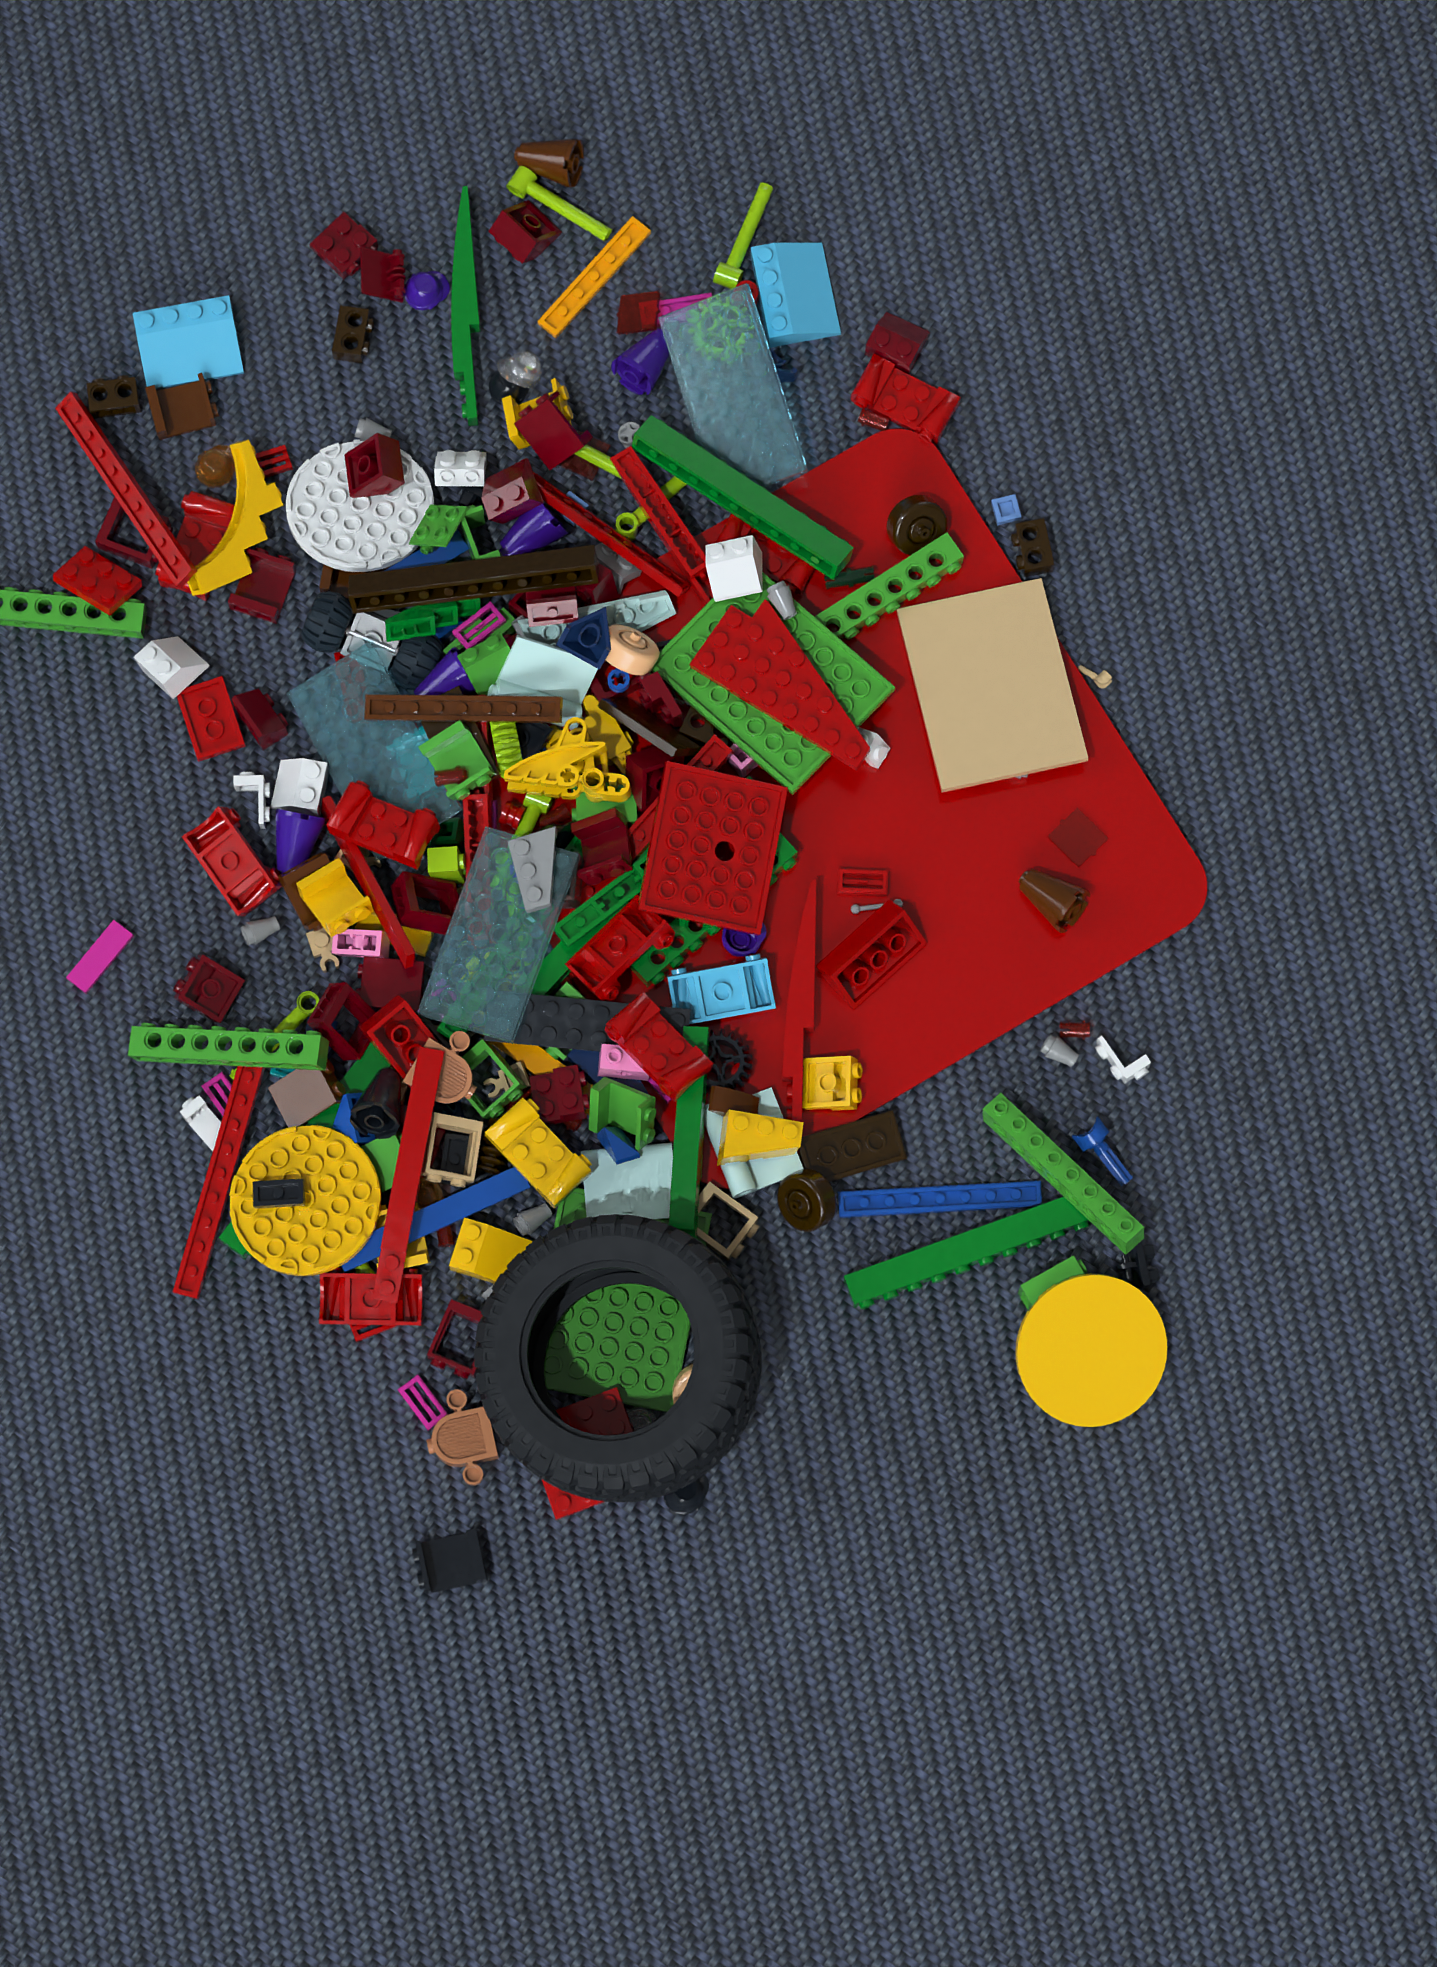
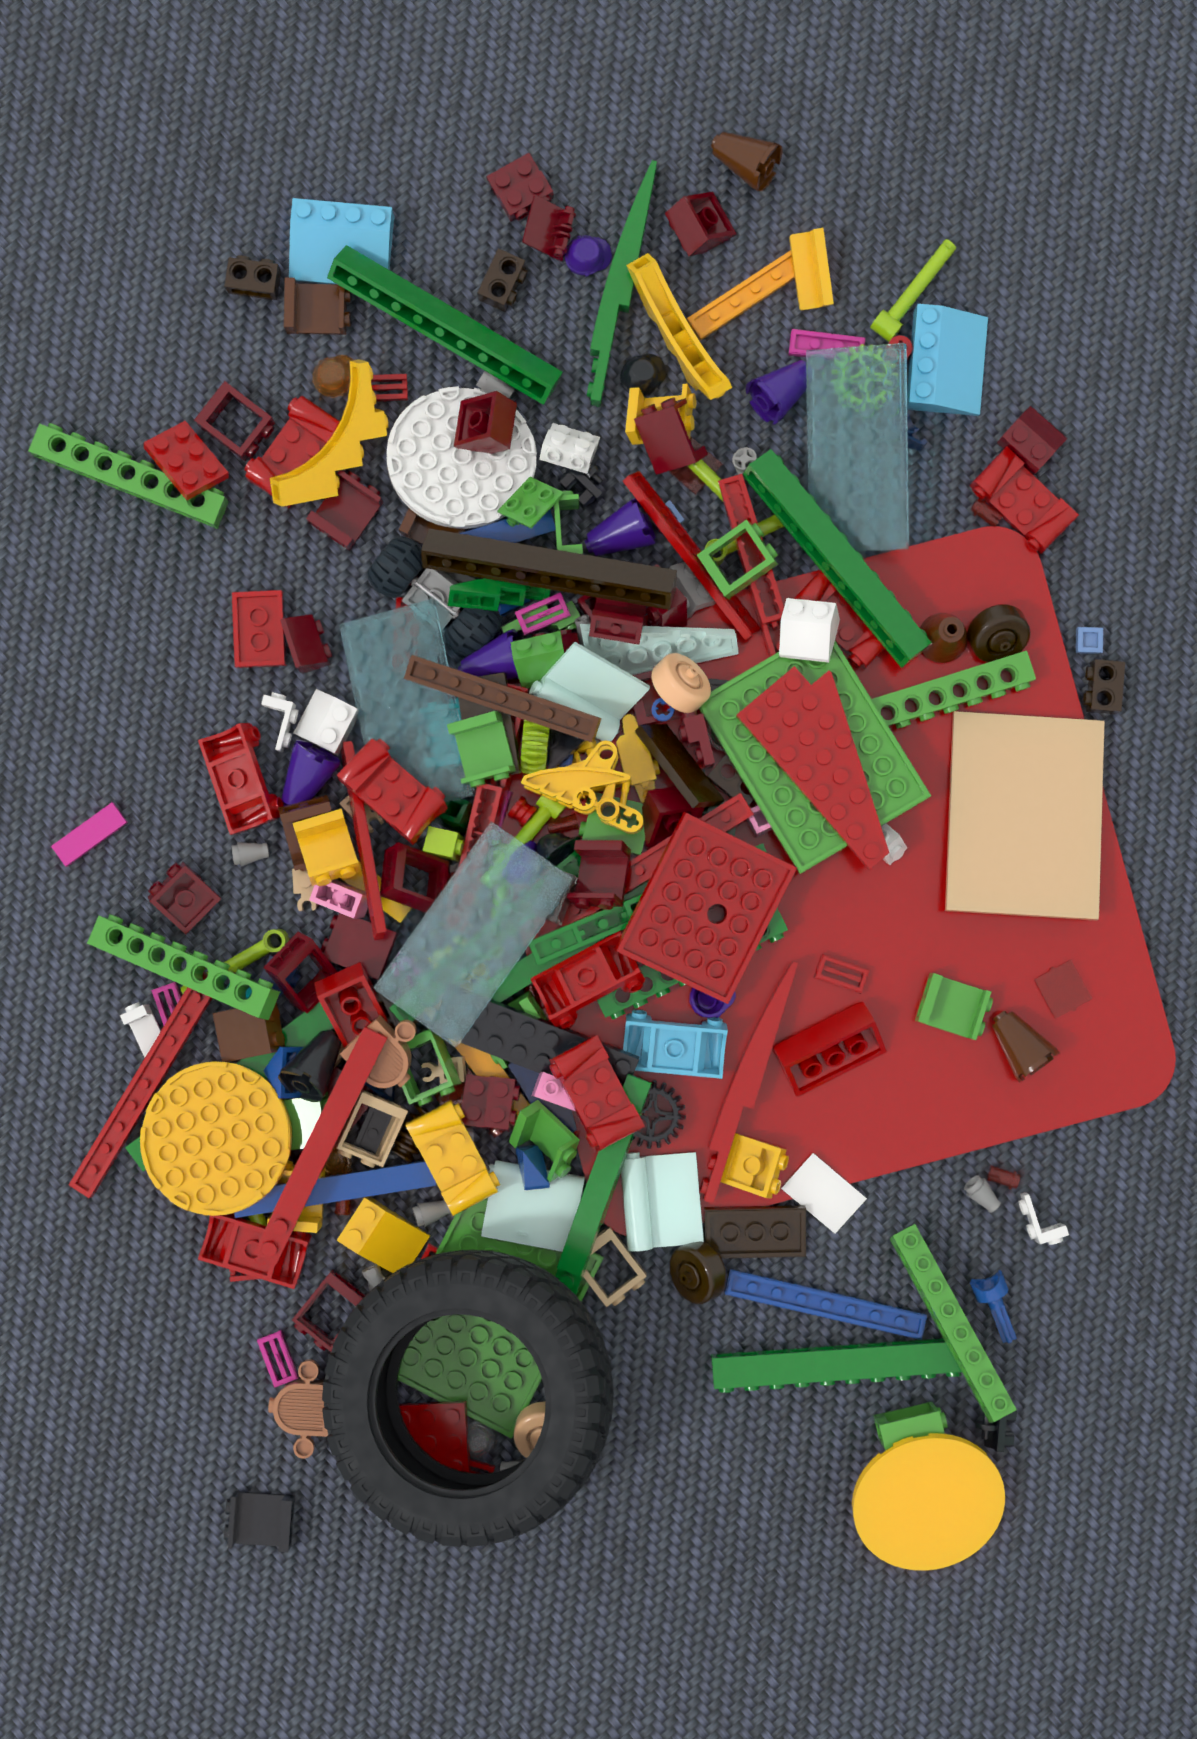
camera: 15 degrees right, 10 degrees up
(126, 489) = (237, 378): red plate -> none
(170, 664) = (234, 564): white slope -> none
(278, 1193) = (190, 1128): black plate -> none
(309, 388) = (444, 324): none -> green brick
(450, 776) = (471, 762): clear red pin -> none
(511, 492) = (611, 488): dark red slope -> none
(512, 318) = (678, 336): none -> yellow arch
(521, 369) = (656, 364): clear hat -> none
(524, 183) = (713, 174): lime piece -> none
(534, 865) = (525, 879): light grey wing -> none
(588, 638) = (644, 663): dark blue slope -> none
(638, 312) = (788, 338): clear red piece -> none
(642, 244) = (811, 269): none -> yellow panel
(667, 533) = (716, 573): none -> bright green window
(724, 1099) = (654, 1163): reddish brown slope -> none
(757, 1136) = (666, 1204): yellow wedge -> none
(782, 599) = (846, 676): light grey cone -> none
(850, 577) = (919, 666): clear green pin -> none
(855, 909) = (827, 998): light grey hinge -> none
(869, 543) = (947, 637): none -> reddish brown cone
(906, 1093) = (824, 1193): none -> white sticker
(978, 882) = (954, 1006): none -> bright green panel
(1101, 680) = (1131, 838): tan hand -> none

